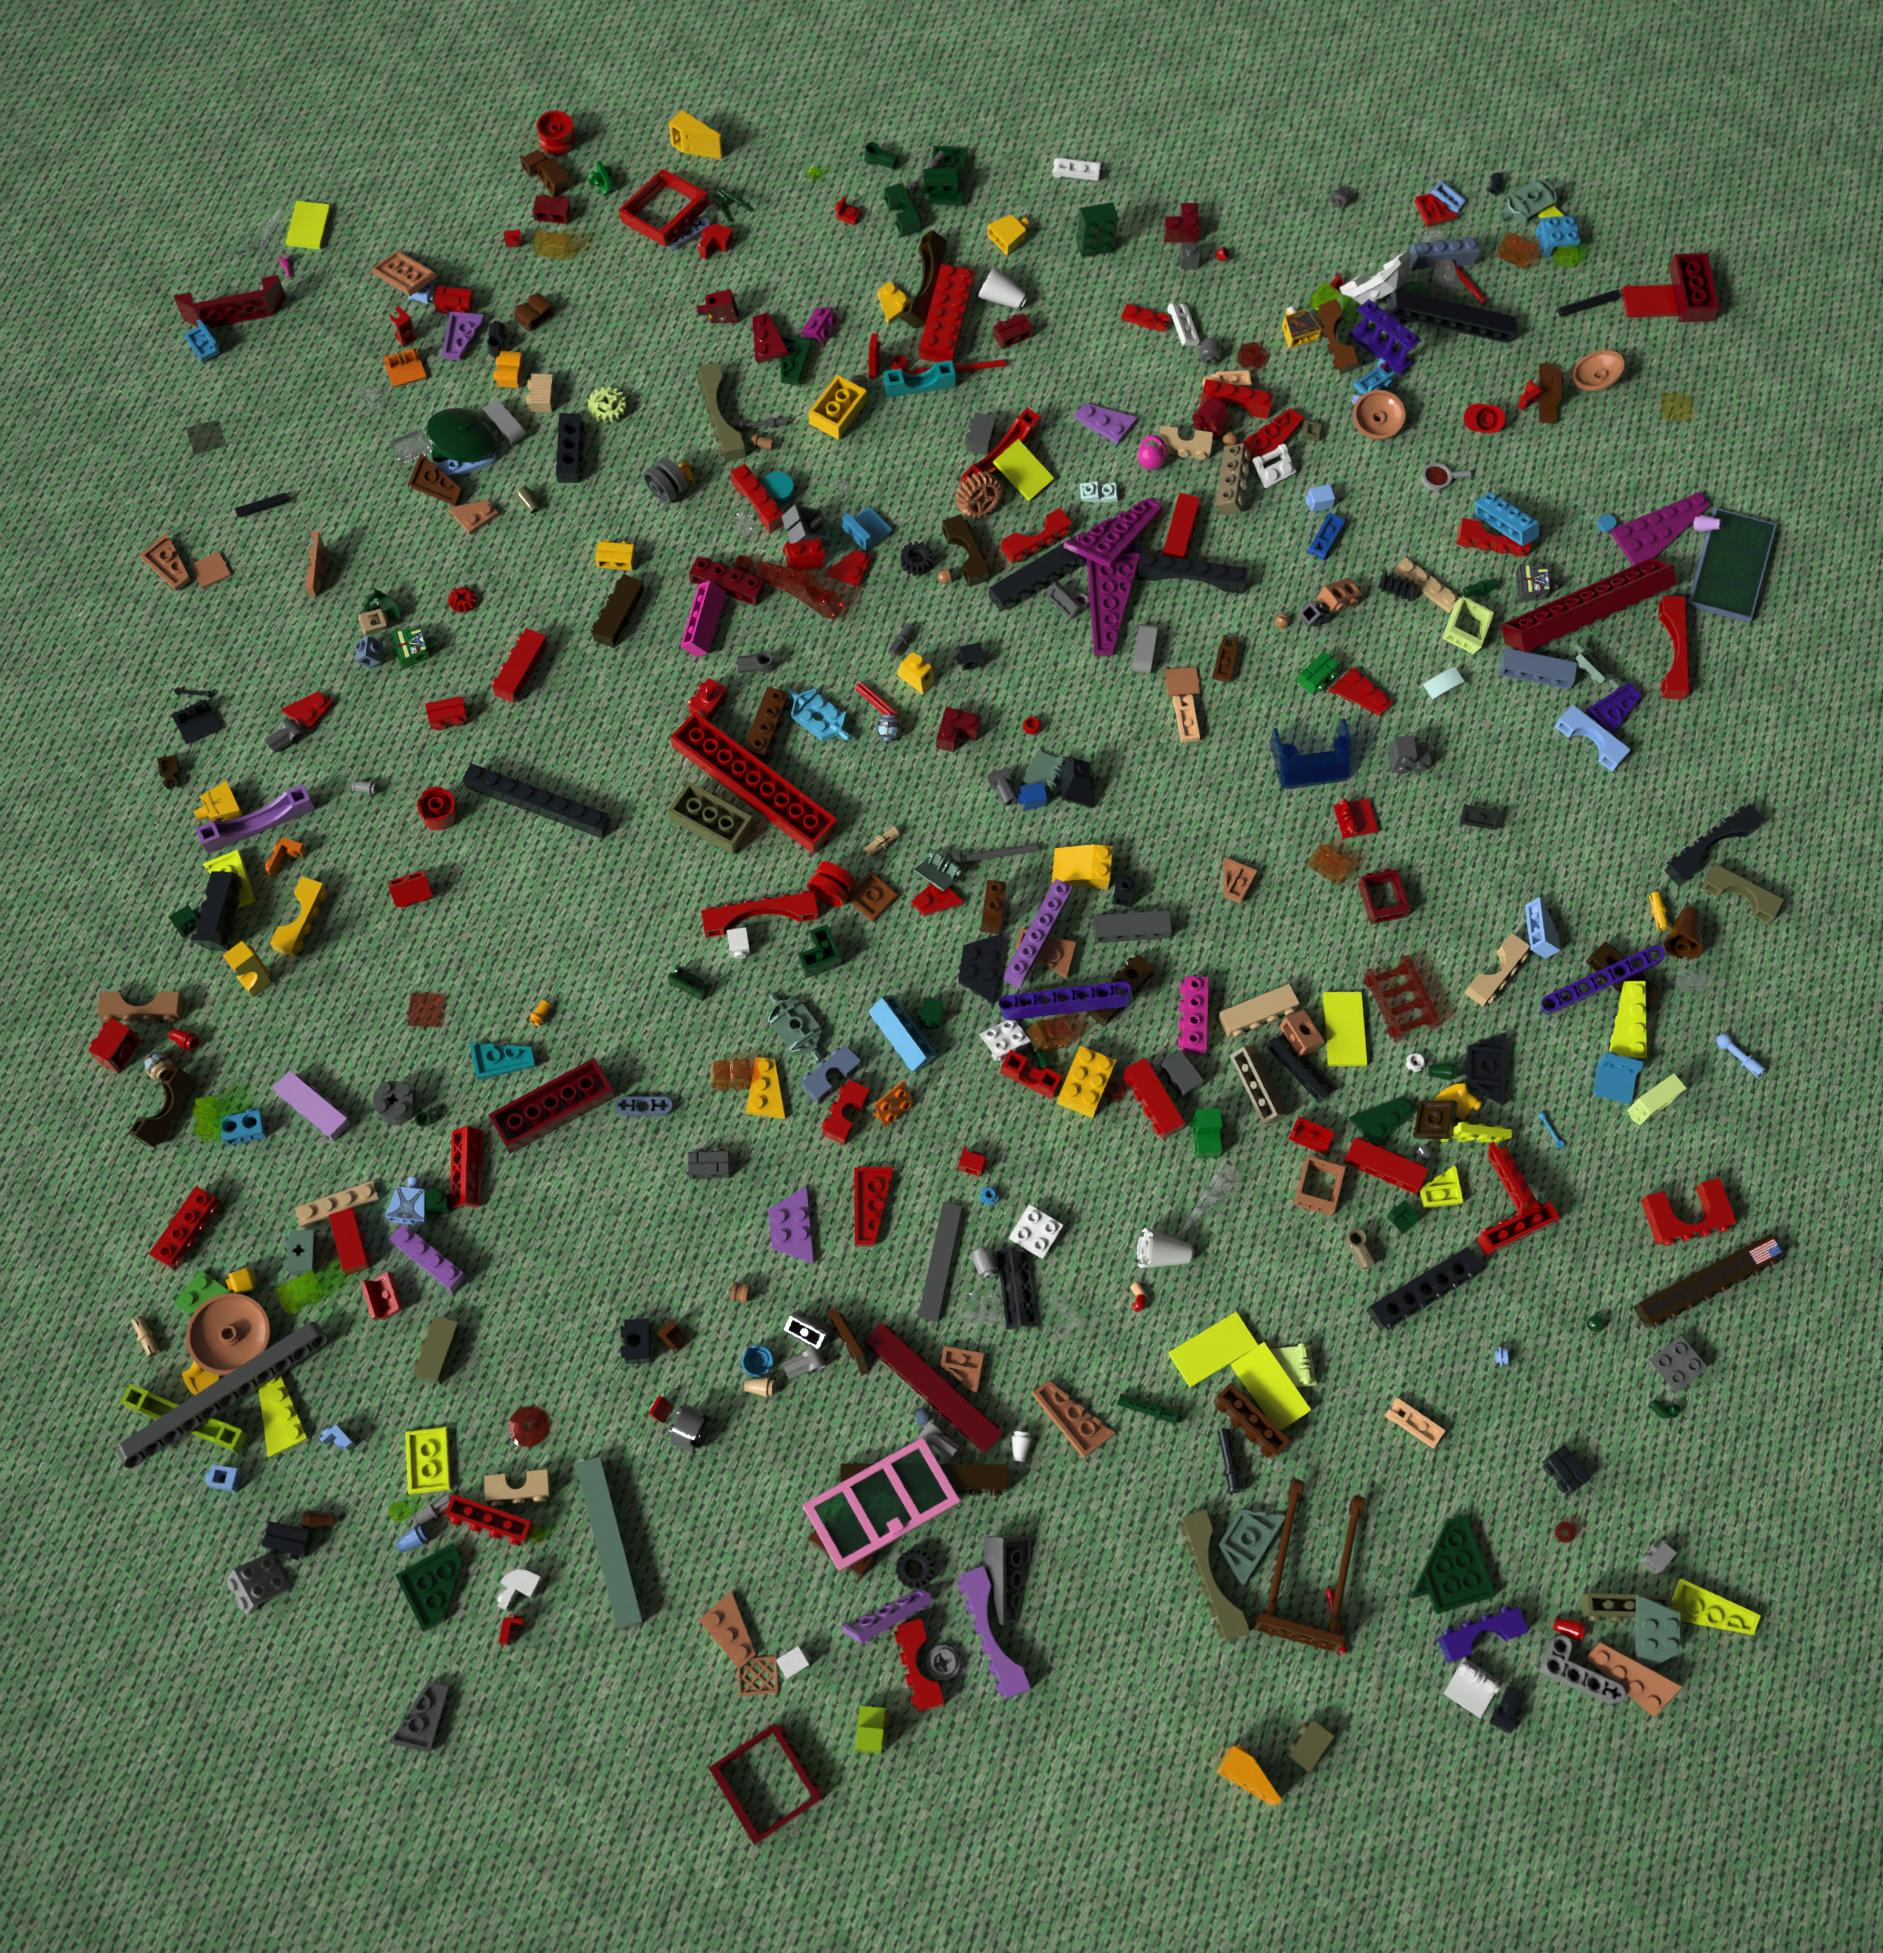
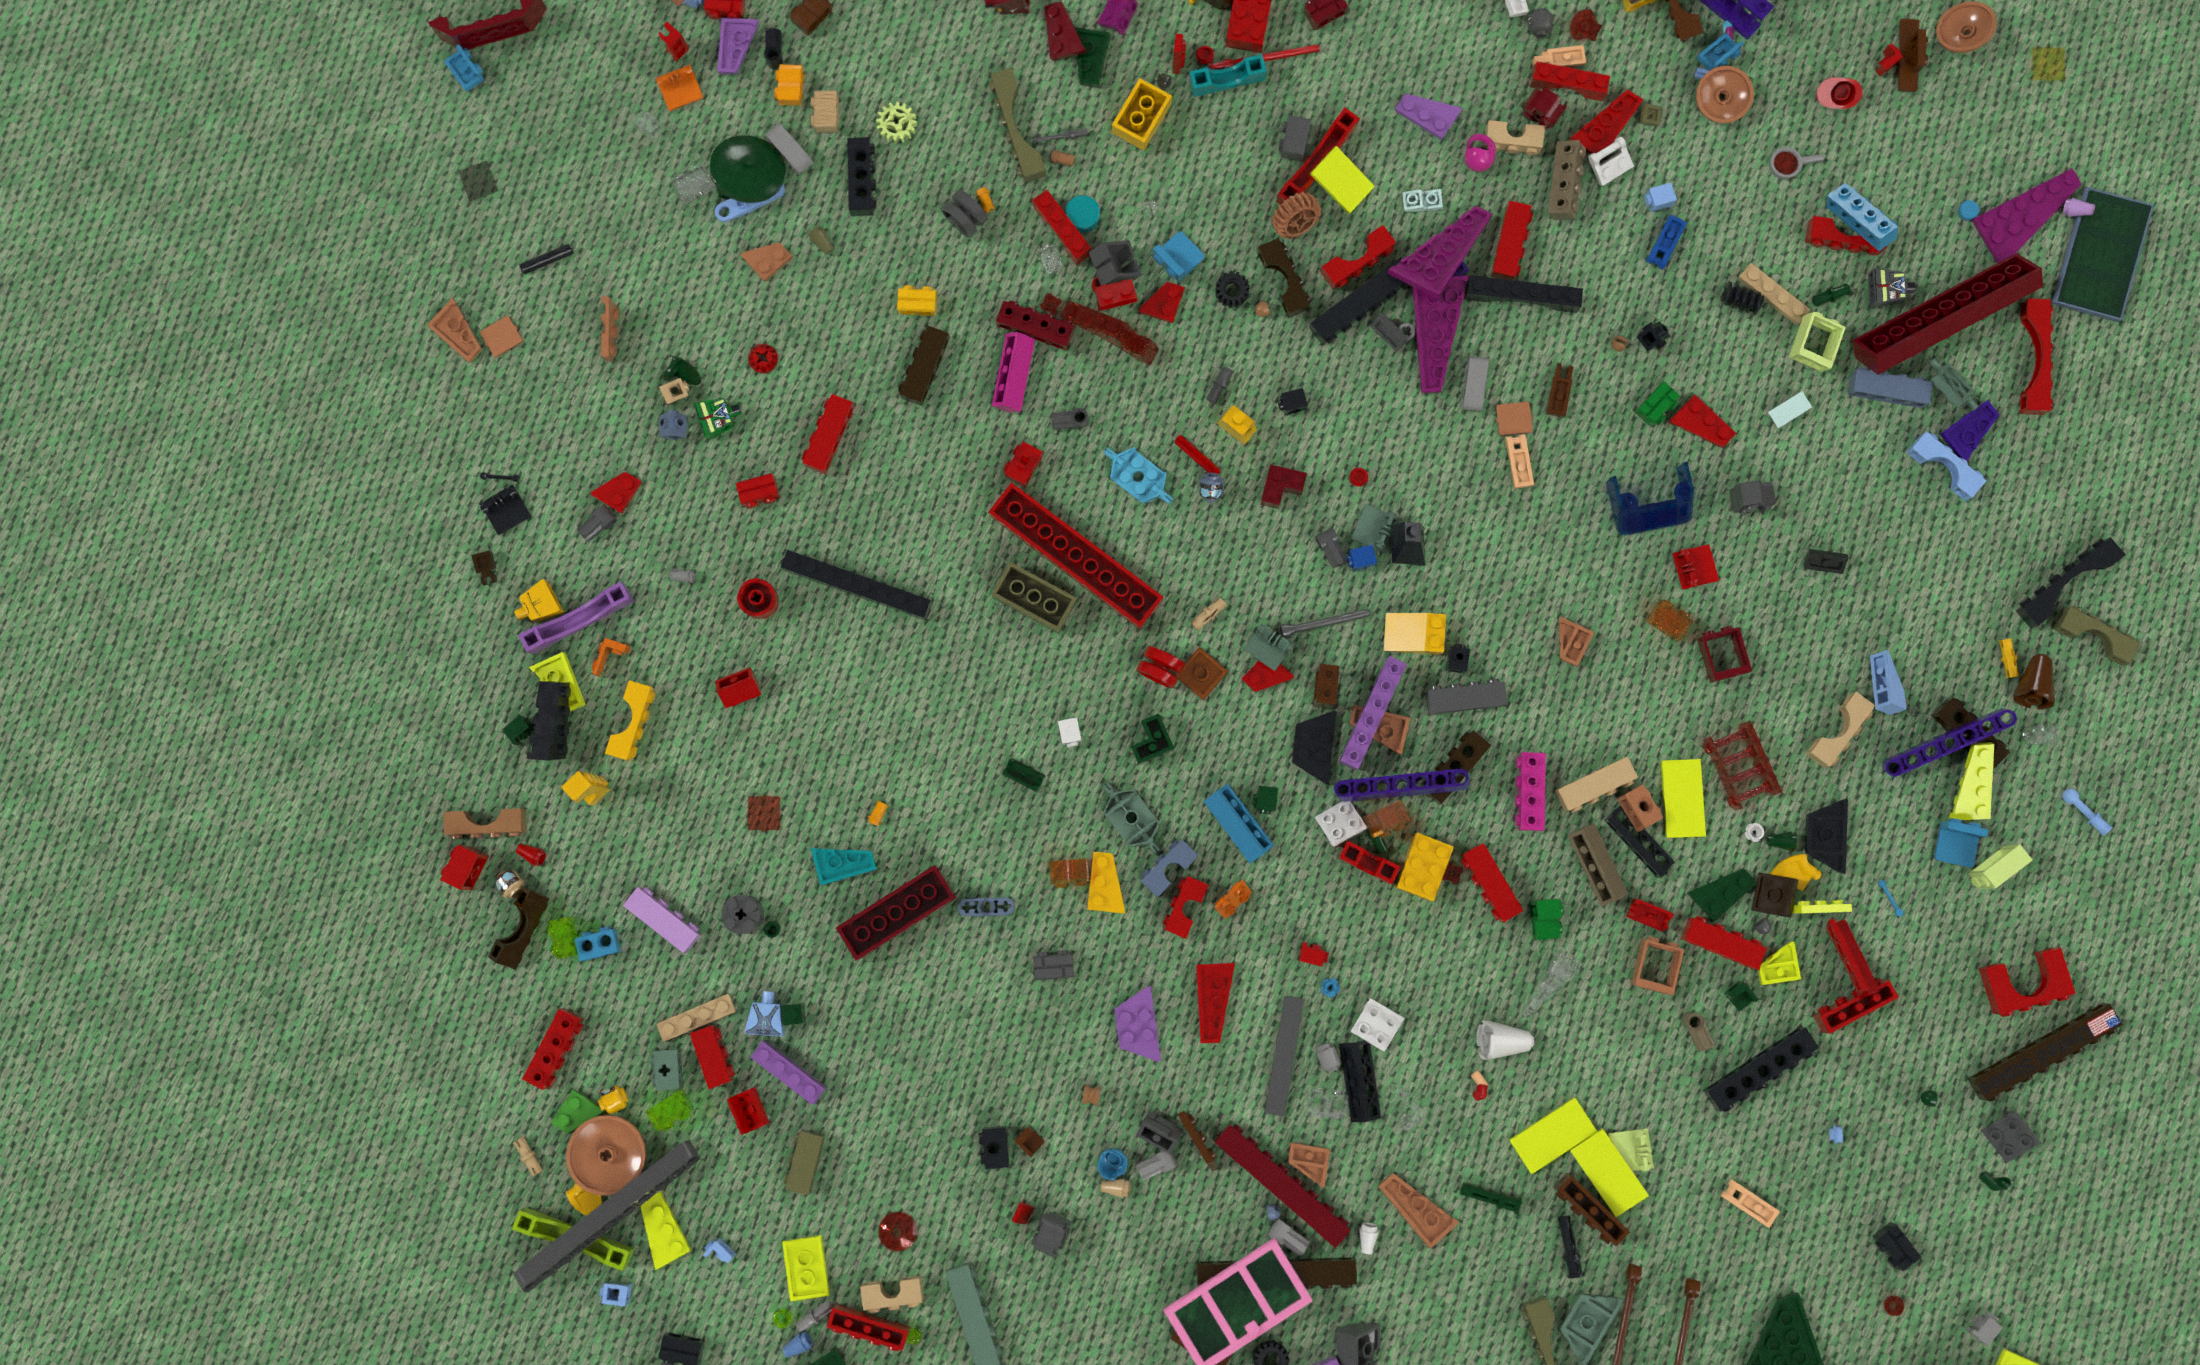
camera: 10 degrees right, 15 degrees up
(317, 1519) = (705, 1329): reddish brown cone -> none
(433, 482) = (722, 225): reddish brown wing -> none
(469, 1167) = (820, 977): red fence -> none
(766, 723) = (1084, 489): reddish brown brick -> none
(799, 907) = (1128, 690): red arch -> none
(1182, 1074) = (1520, 856): dark grey brick -> none
(1230, 438) = (1563, 130): medium nougat hinge -> none
(1339, 595) = (1680, 314): nougat brick -> none

